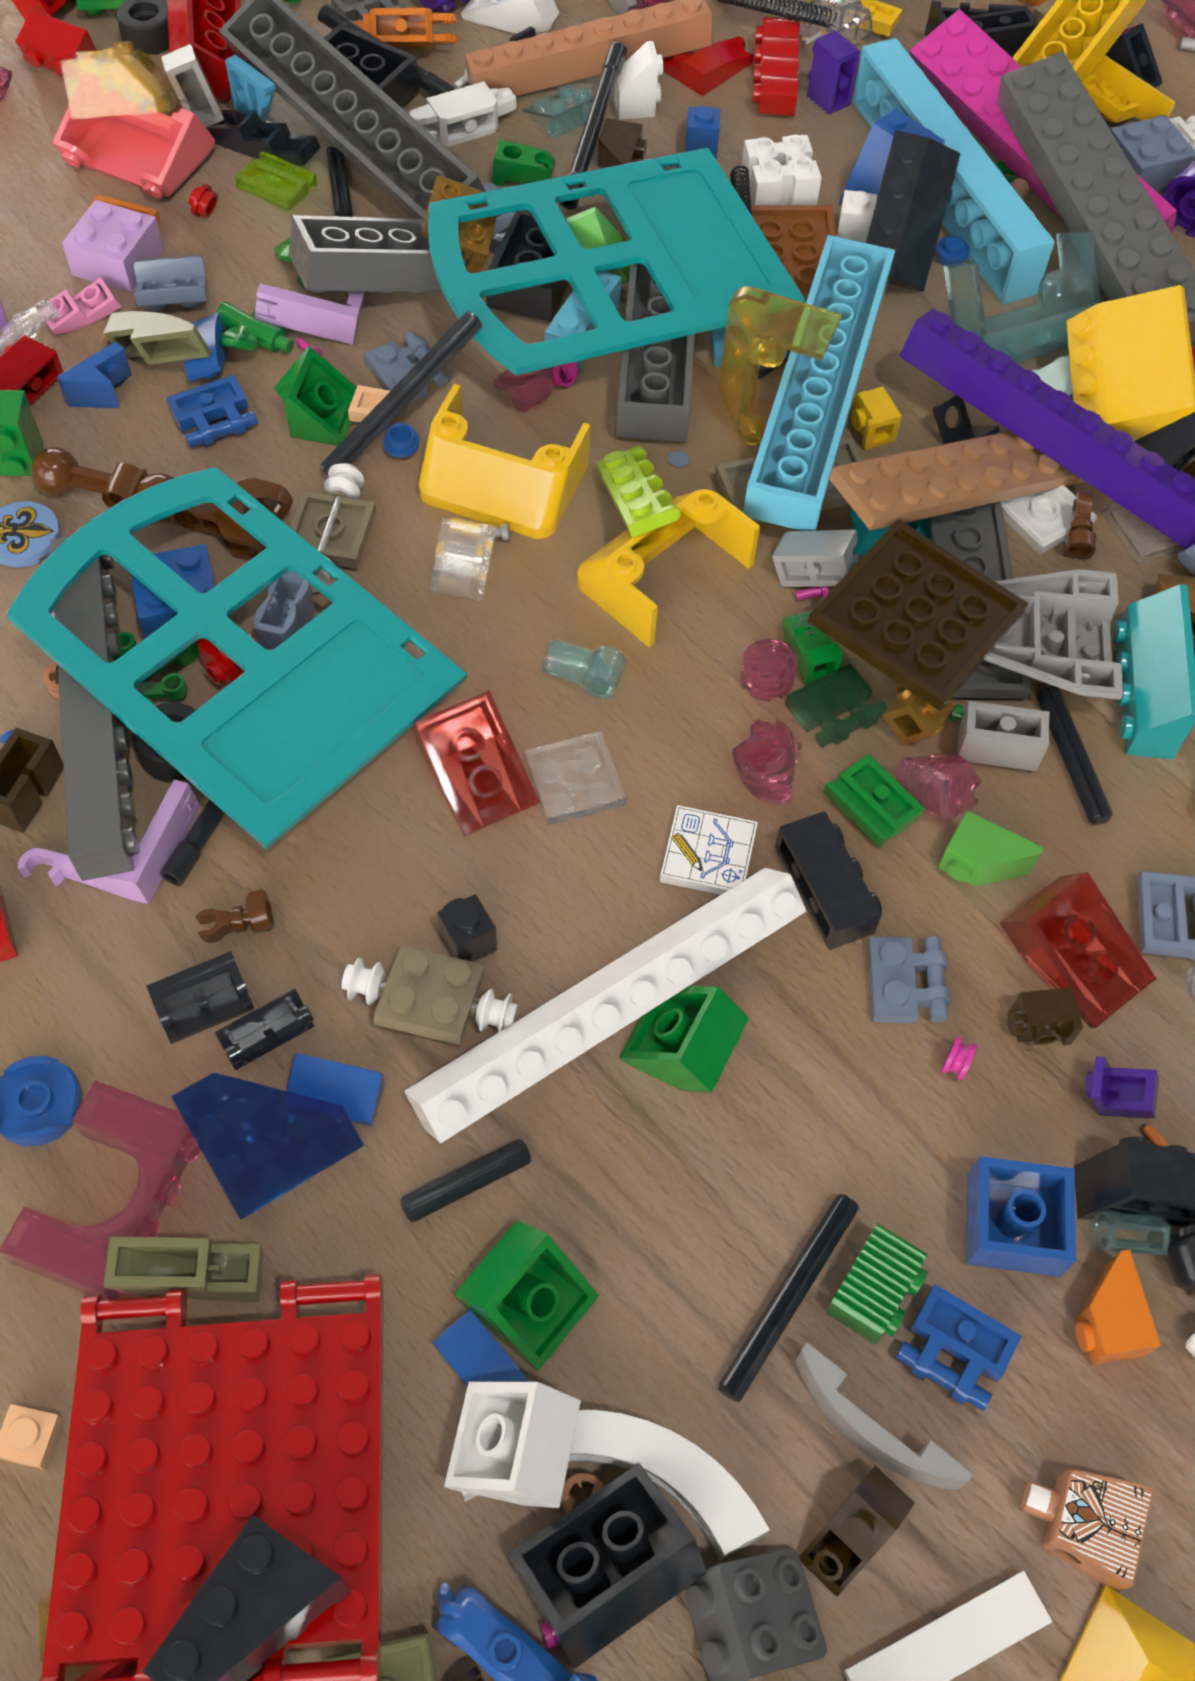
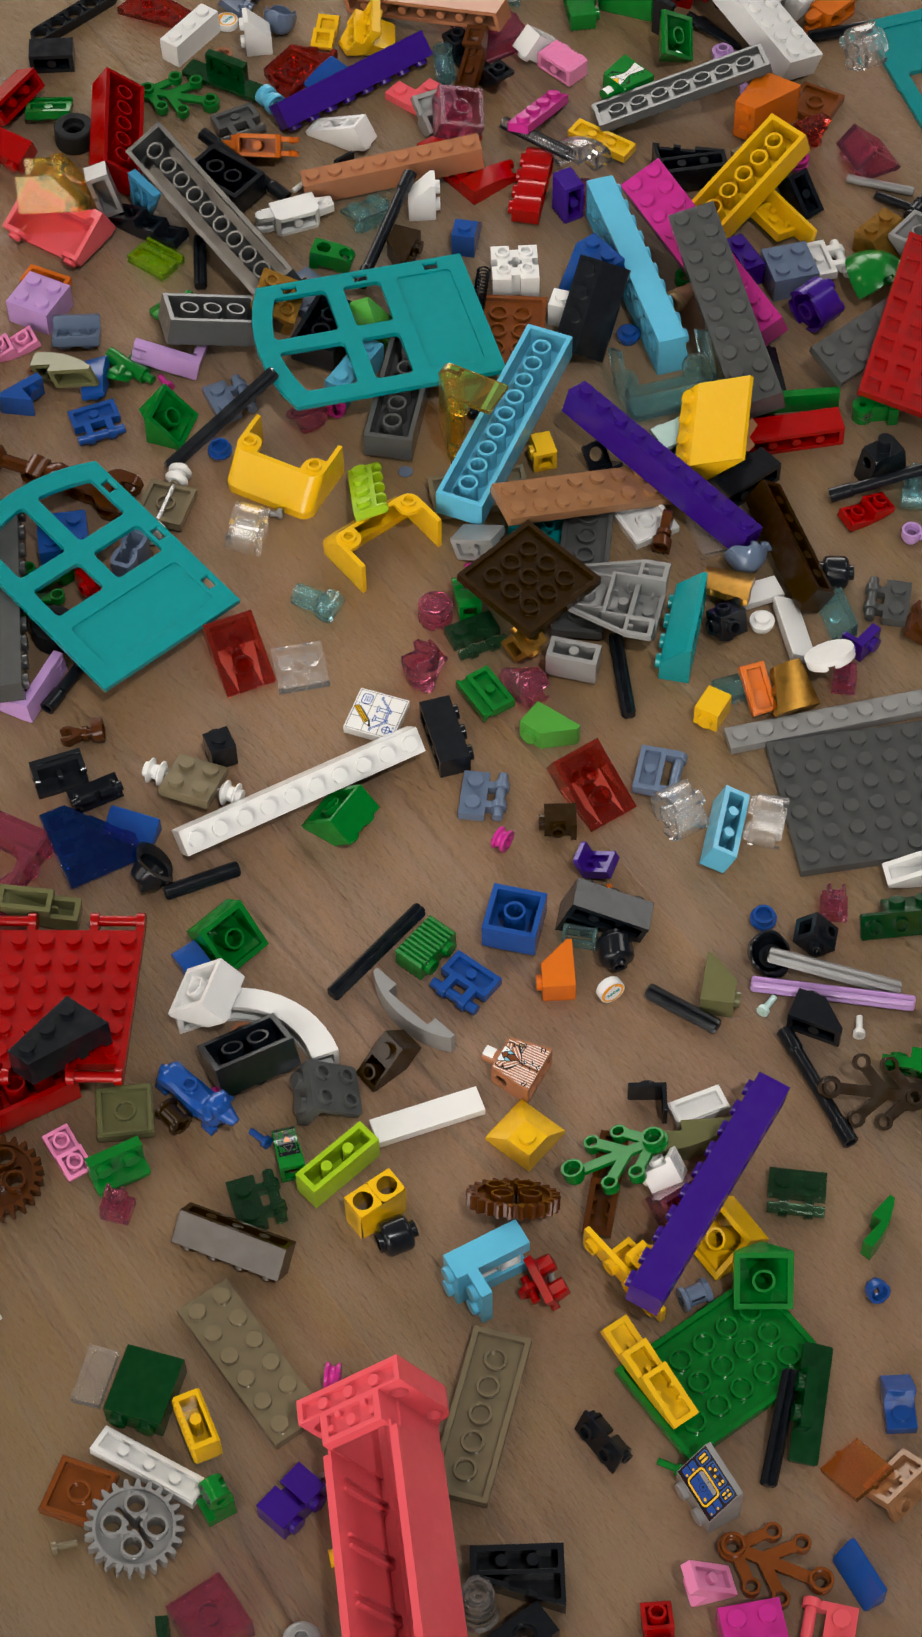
camera: 10 degrees right, 5 degrees down
(203, 201) = (103, 272): red plate -> none
(364, 401) = (197, 421): light nougat plate -> none
(378, 1167) = (151, 868): none -> black piece

